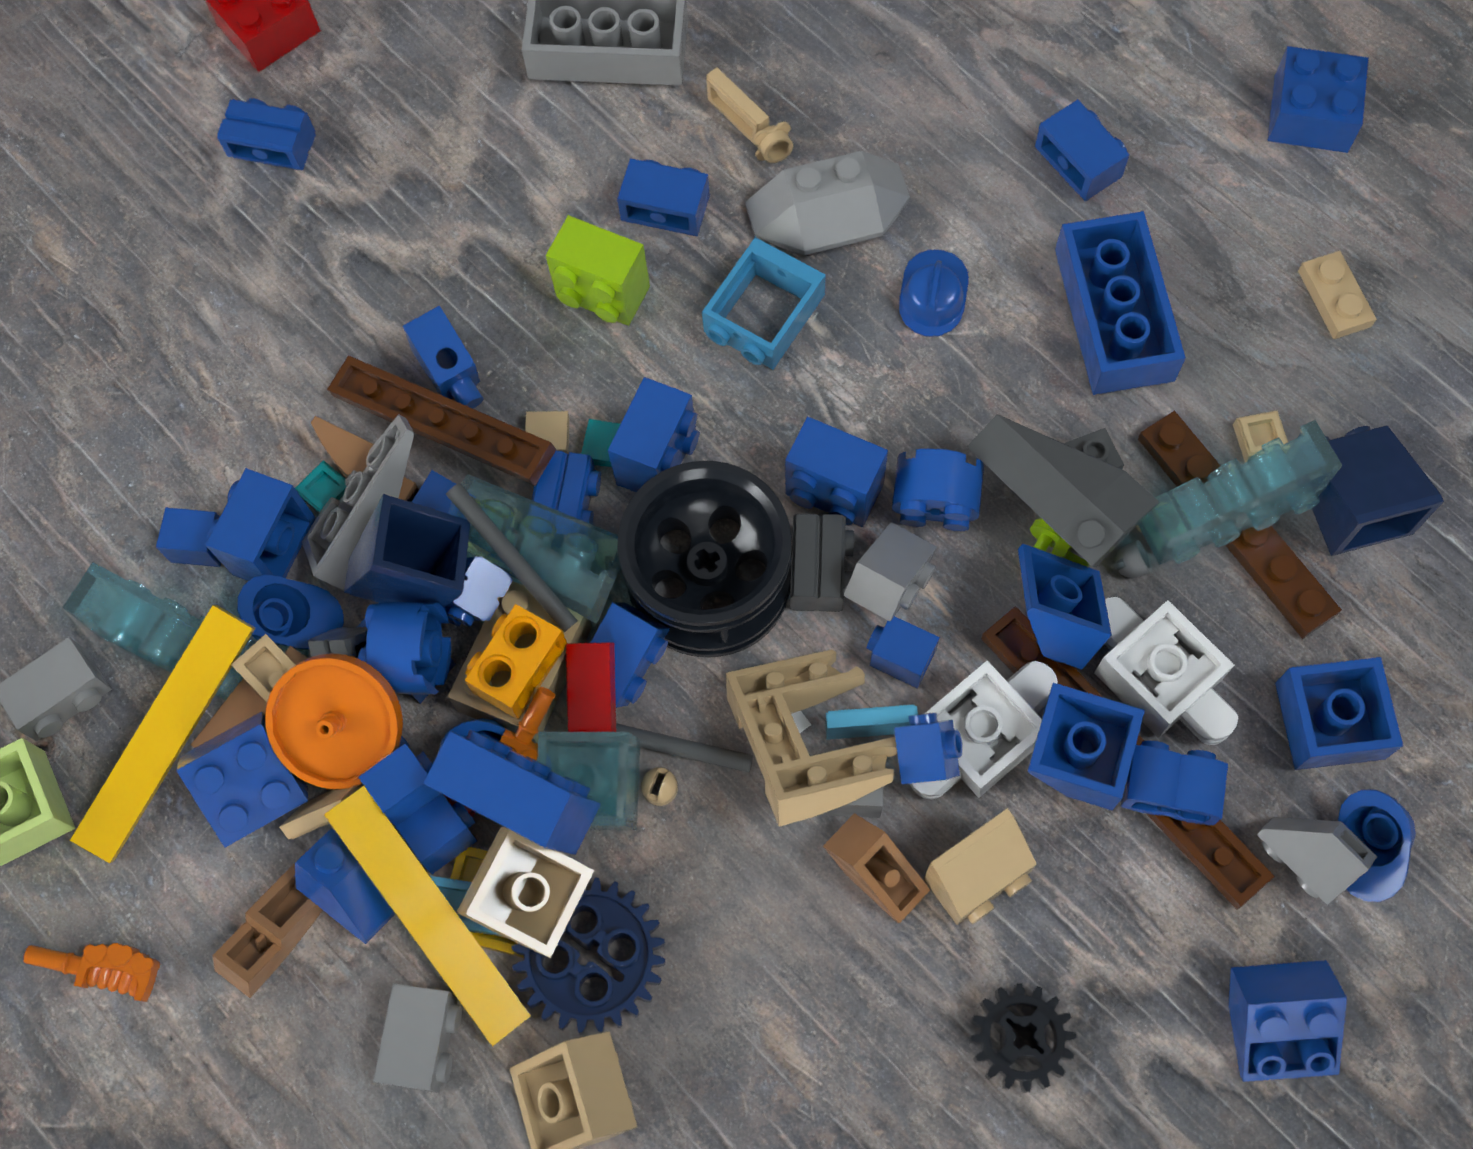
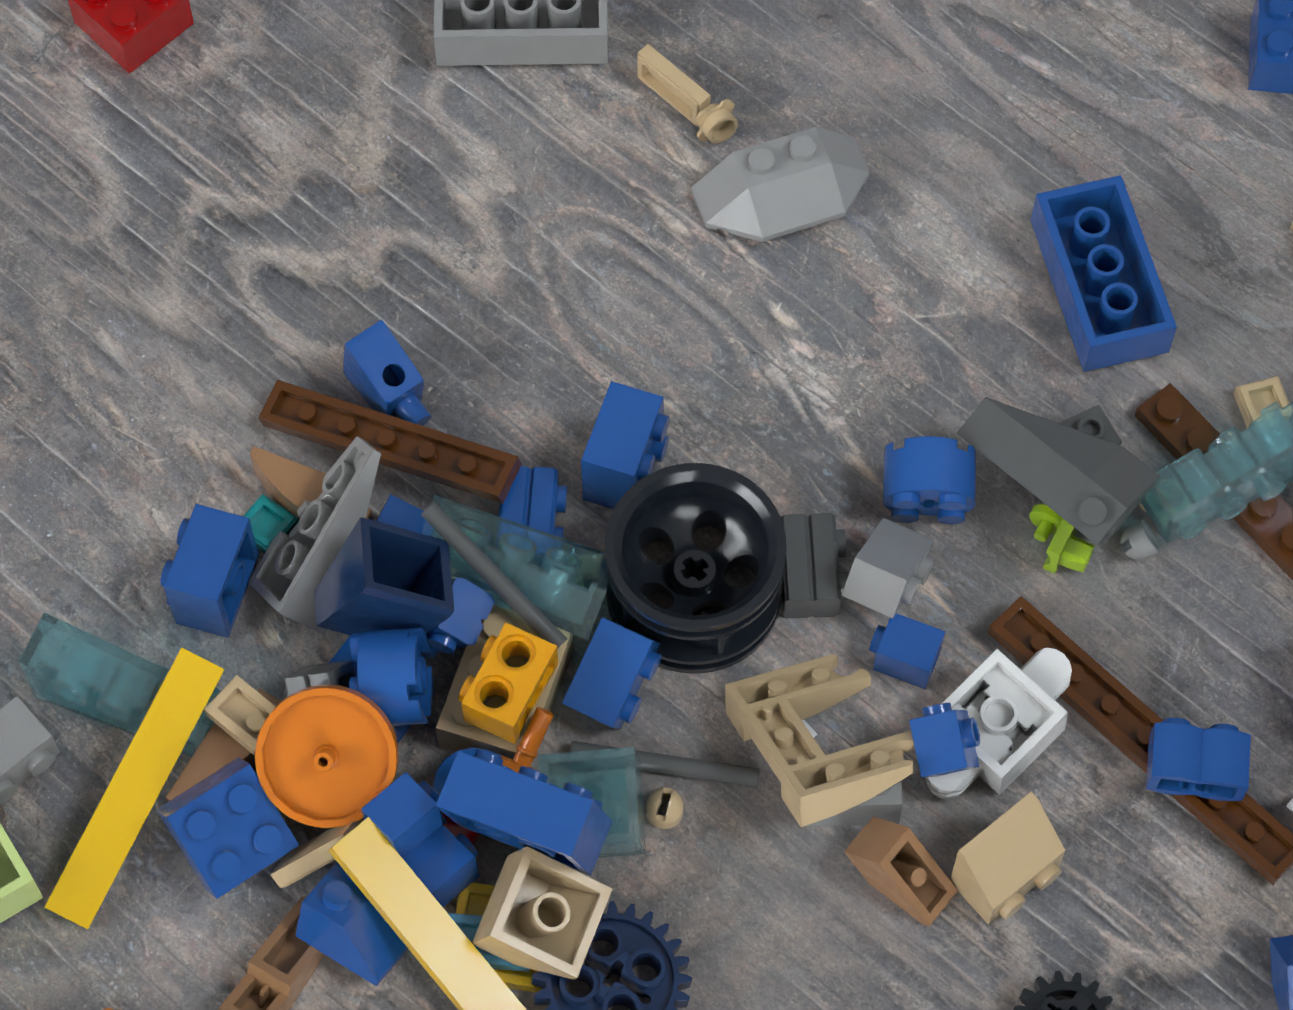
camera: 10 degrees left, 5 degrees down
(185, 535) = (131, 584): blue brick -> none
(266, 133) = (153, 142): blue brick -> none
(288, 610) = (253, 651): blue piece -> none
(550, 426) = (506, 439): tan tile -> none
(591, 687) = (586, 705): red tile -> none
(598, 270) = (543, 272): lime brick -> none
(598, 440) = (565, 454): teal tile -> none
(663, 196) = (603, 187): blue brick -> none
(779, 270) = (737, 260): dark azure window -> none
(834, 472) = (819, 469): blue brick -> none
(867, 721) = (874, 724): medium azure tile -> none
(933, 293) = (904, 274): blue piece -> none
(1064, 606) = (1071, 590): blue slope -> none
(1082, 149) = (1050, 111): blue brick -> none
(1085, 746) = (1105, 727): blue slope -> none
(1180, 662) = (1192, 635): white brick -> none

